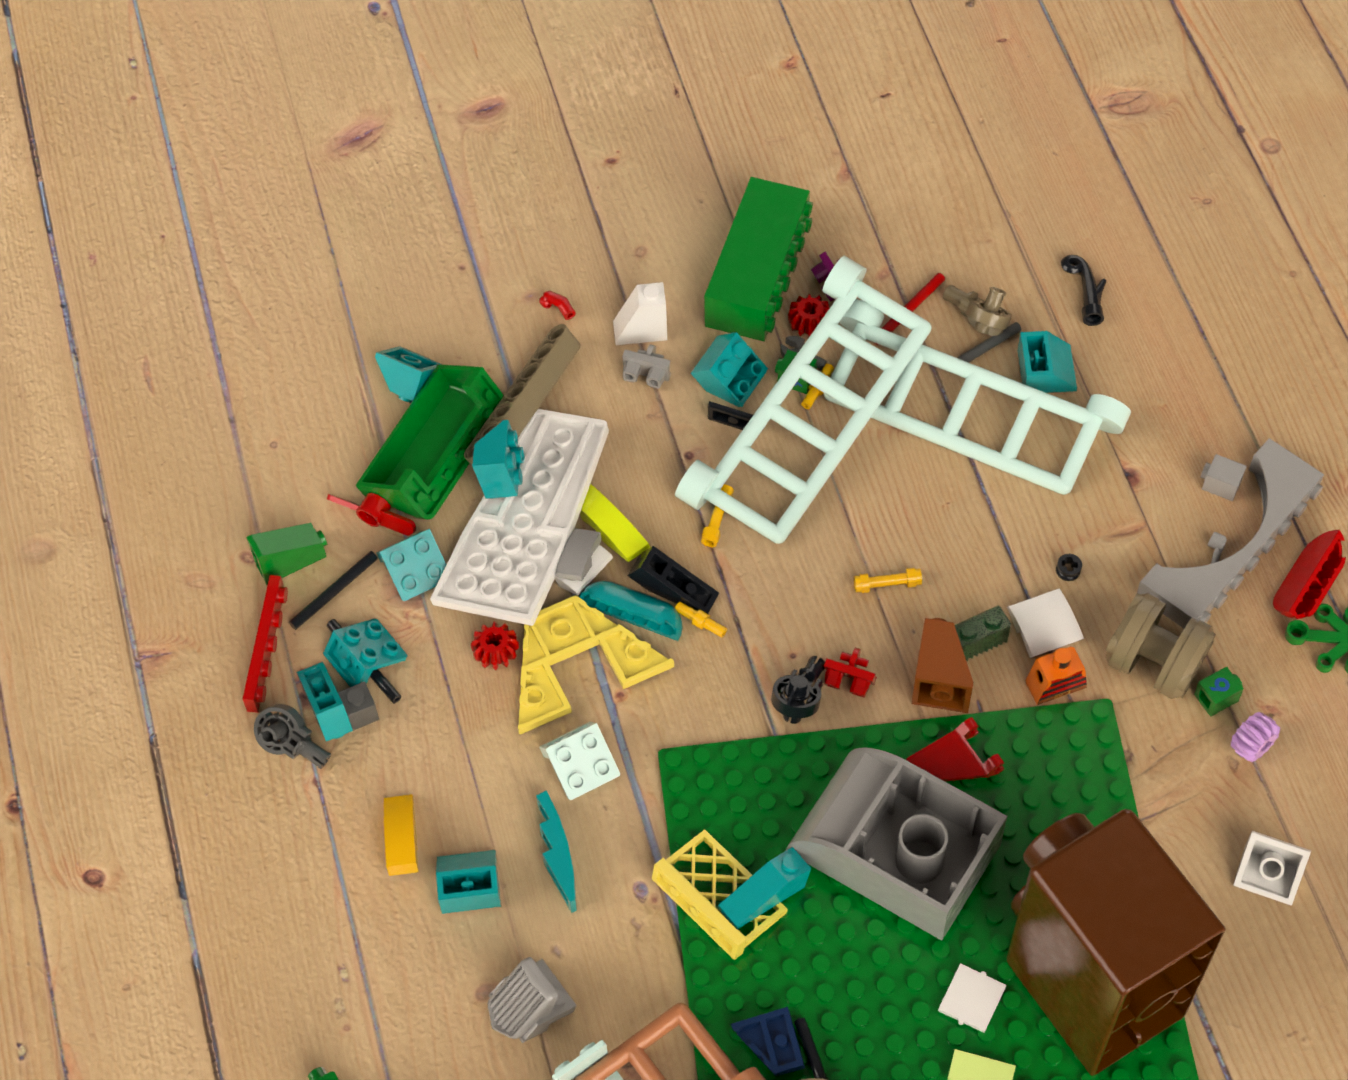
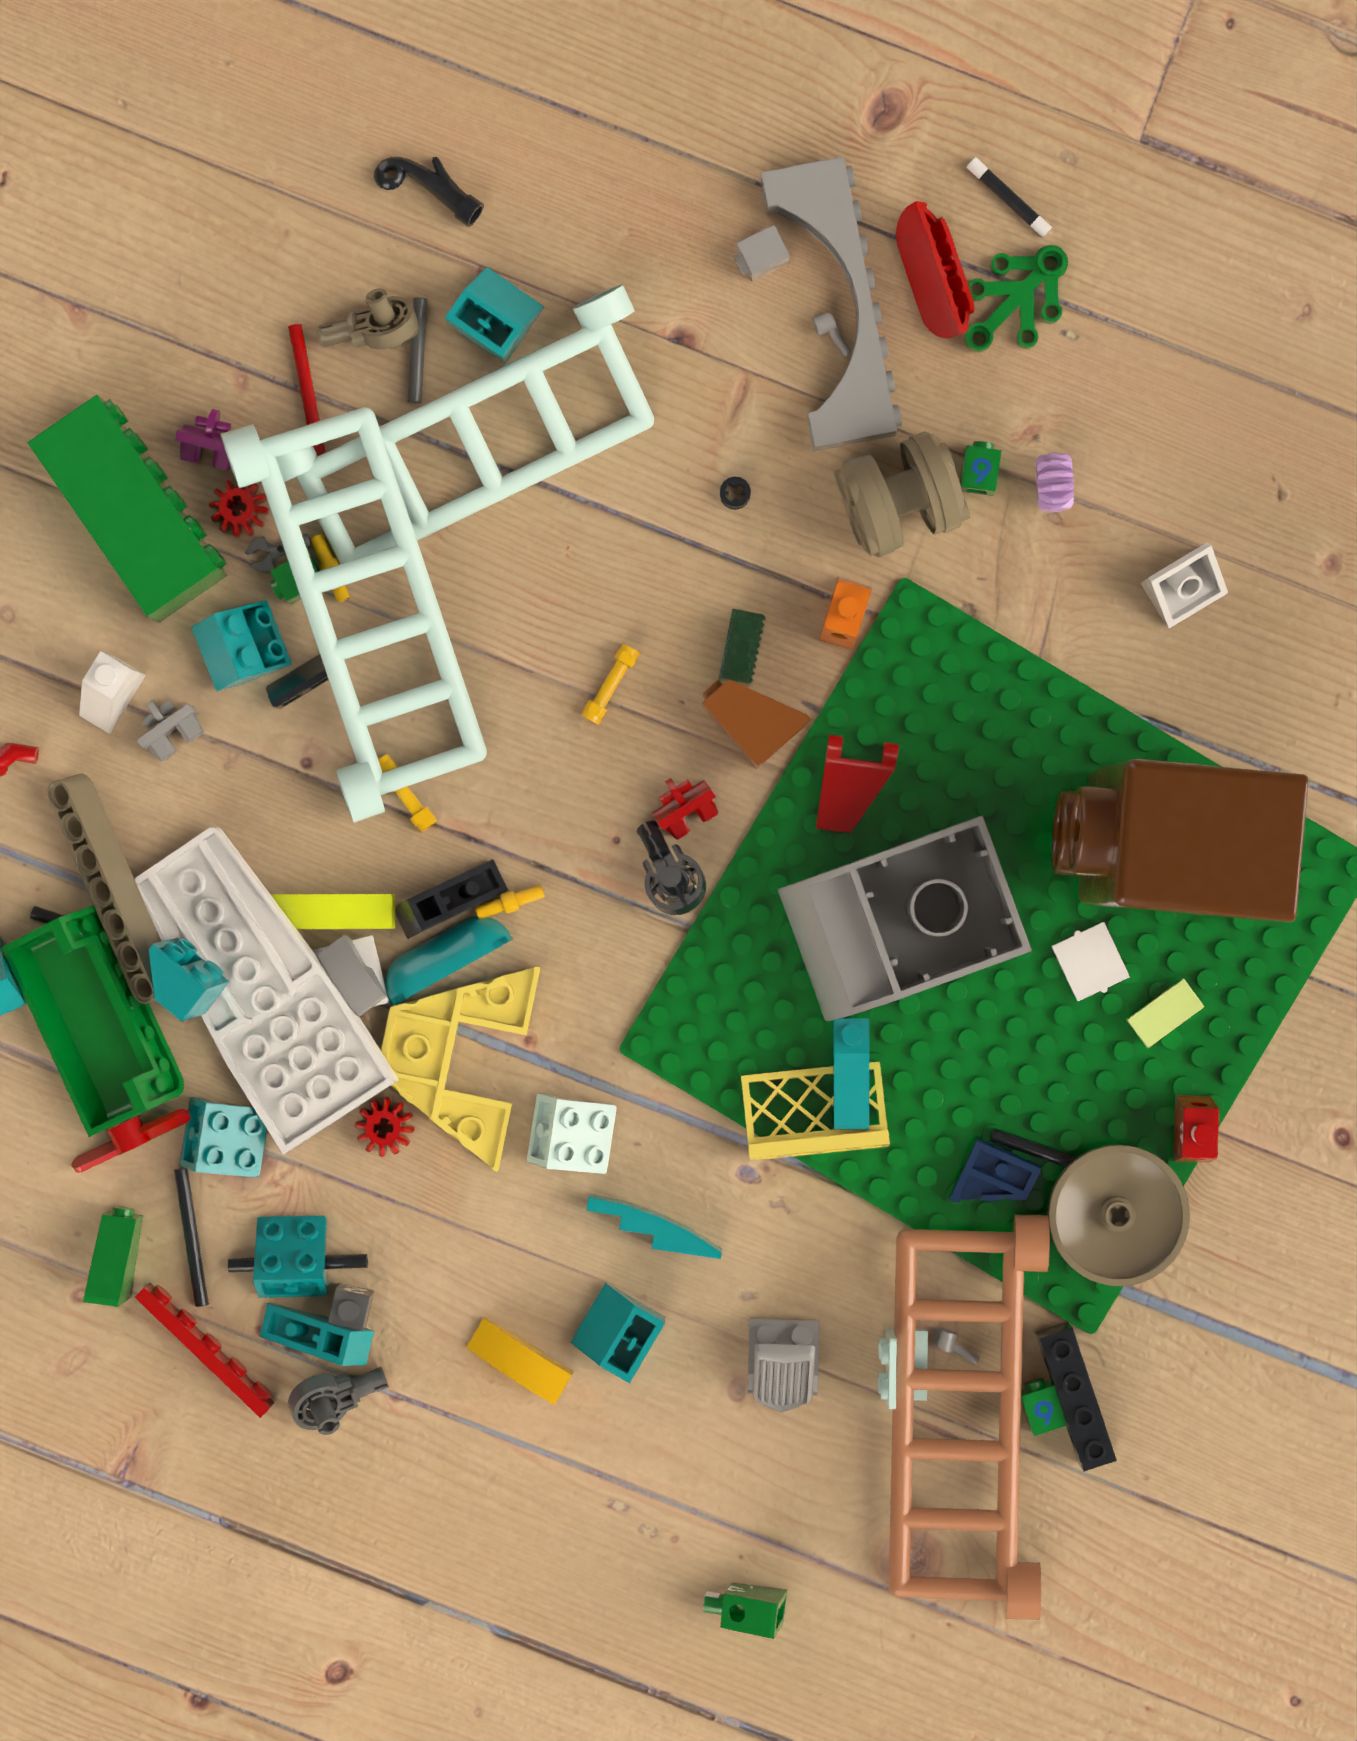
camera: 55 degrees left, 30 degrees up
(1045, 622) = (777, 570): white slope -> none

